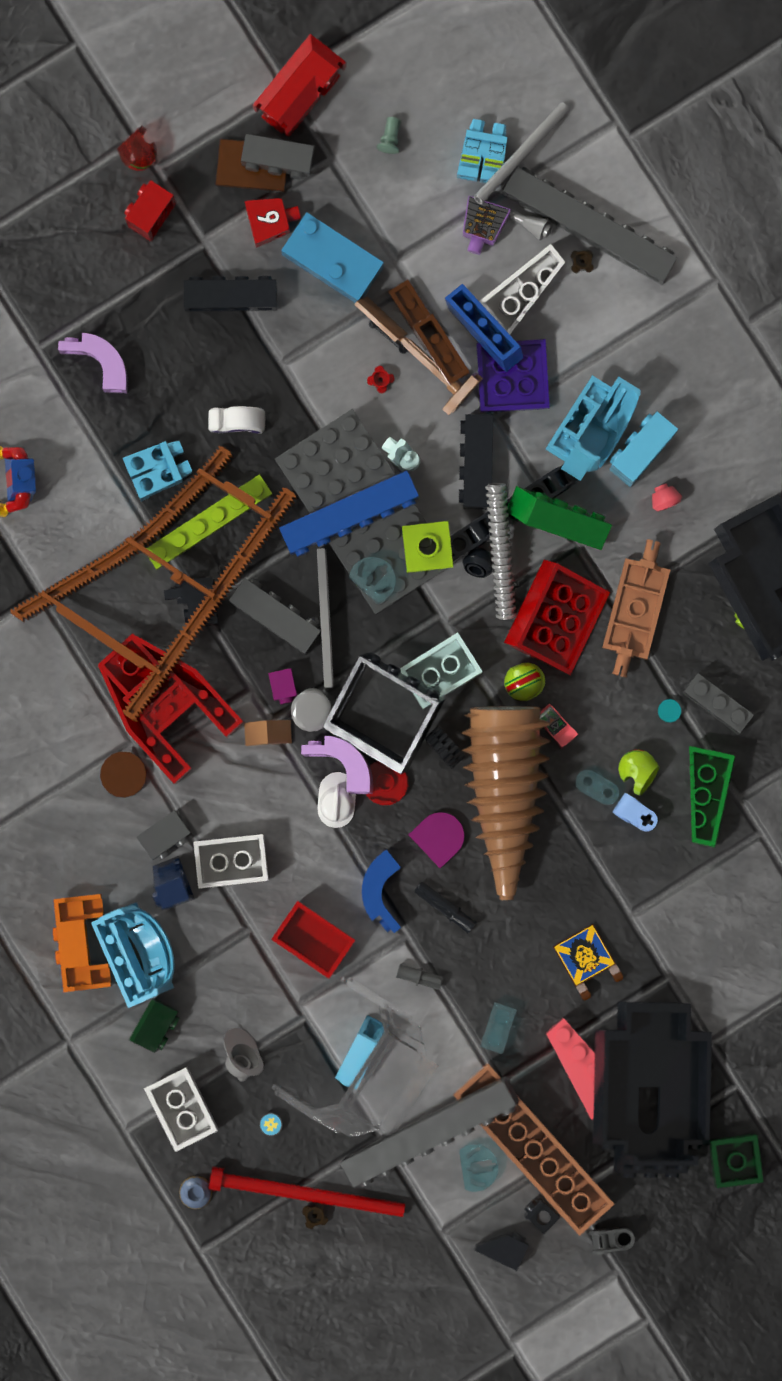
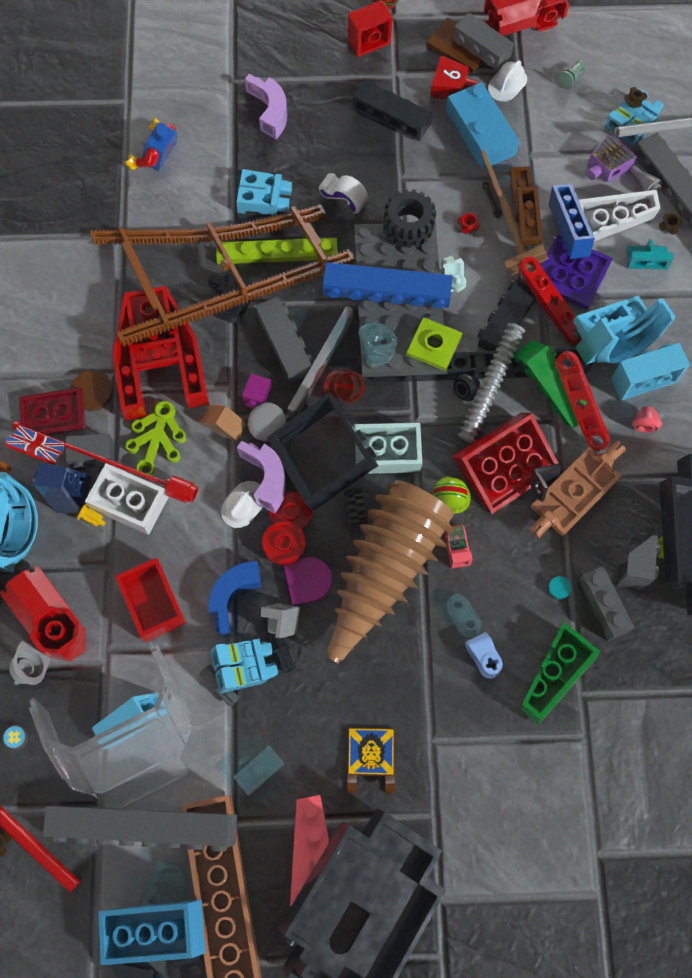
camera: 25 degrees right, 15 degrees down
(103, 819) = (53, 411): none -> dark red tile
(135, 865) = (49, 449): none -> flag
(206, 895) = (90, 516): none -> yellow piece
(215, 782) = (156, 436): none -> lime plant
(230, 1008) = (45, 615): none -> red brick
(327, 183) = (507, 81): none -> white piece
(329, 409) = (409, 204): none -> black tyre
(360, 633) = (343, 385): none -> clear red helmet
(398, 817) = (283, 543): none -> red tile
(435, 942) = (242, 664): none -> medium azure hips
(440, 888) = (282, 619): none -> light grey panel
(478, 146) = (635, 98): none -> dark brown plate
(492, 1205) = (151, 932): none -> dark azure brick
(497, 421) = (546, 291): none -> red piece
(578, 312) = (648, 257): none -> teal panel
(596, 613) = (542, 476): none -> black bracket
(597, 526) = (576, 389): none -> red piece
(640, 767) = (511, 618): lime helmet -> none
(728, 652) = (639, 566): none -> dark grey slope

